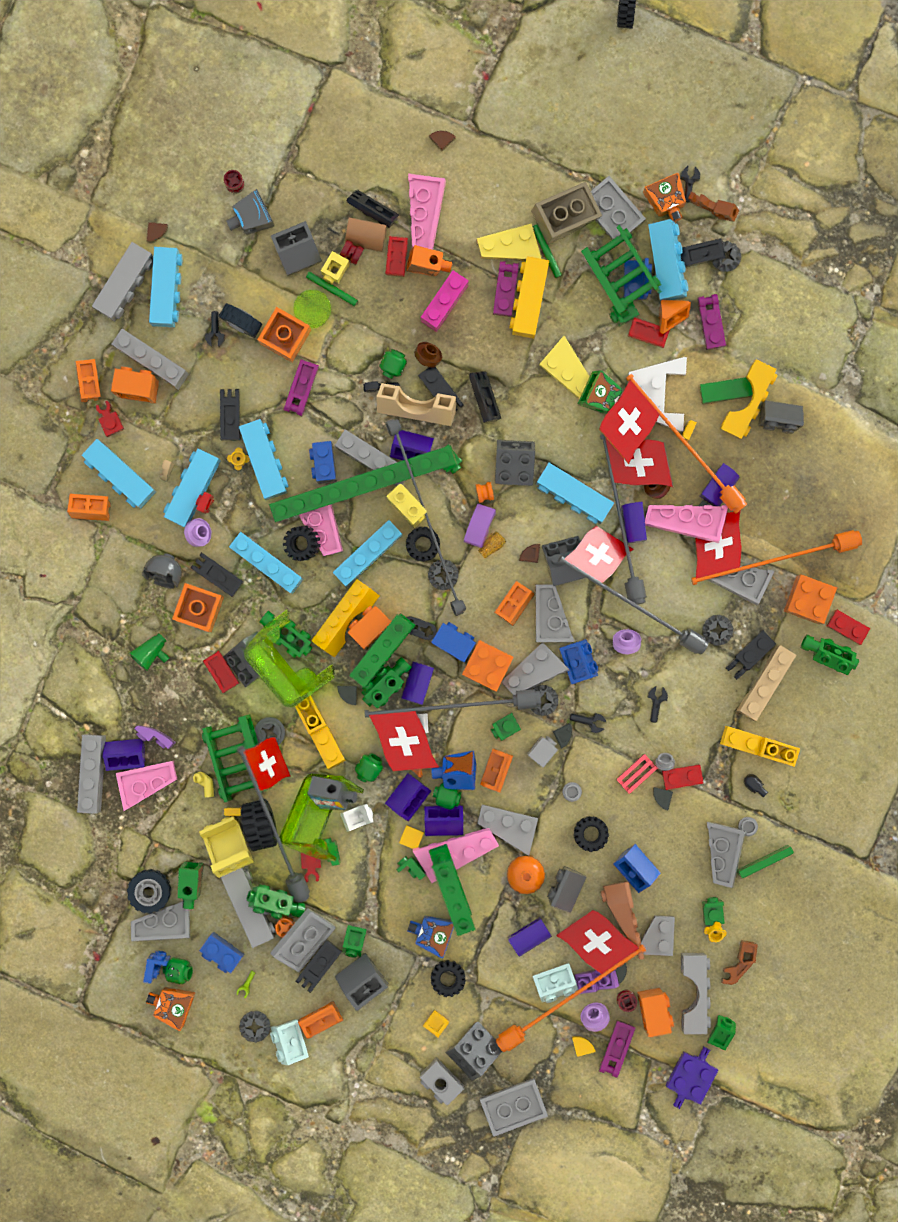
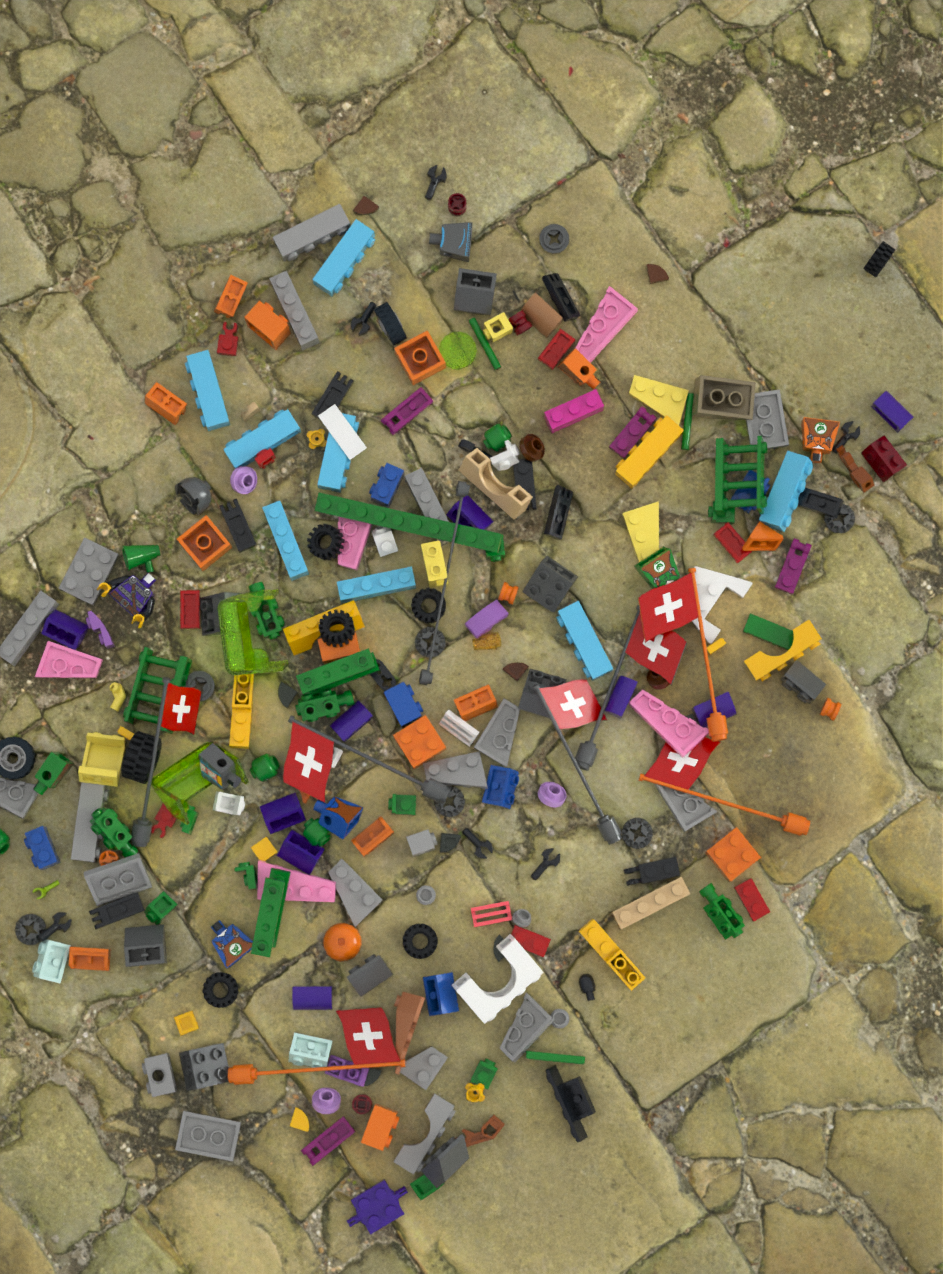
camera: 30 degrees right, 5 degrees down
(113, 692) = (88, 570): none -> light grey plate
(164, 690) = (132, 595): none -> torso
(201, 173) = (434, 181): none -> black bar
(257, 439) = (342, 431): none -> white sticker
(274, 1012) = (55, 926): none -> black bar
(330, 154) = (553, 230): none -> dark grey gear
(350, 511) = (384, 540): none -> white bracket
(351, 606) = (340, 637): none -> black tyre
(412, 377) = (506, 459): none -> white bracket
(513, 633) = (459, 728): none -> white tile
(681, 851) = (523, 973): none -> white arch
(715, 137) = (892, 411): none -> dark purple brick
(728, 1006) = (446, 1160): none -> dark grey slope
(733, 182) = (883, 458): none -> dark red bracket
(802, 888) = (573, 1100): none -> black bracket
(817, 425) = (830, 709): none -> orange wheel

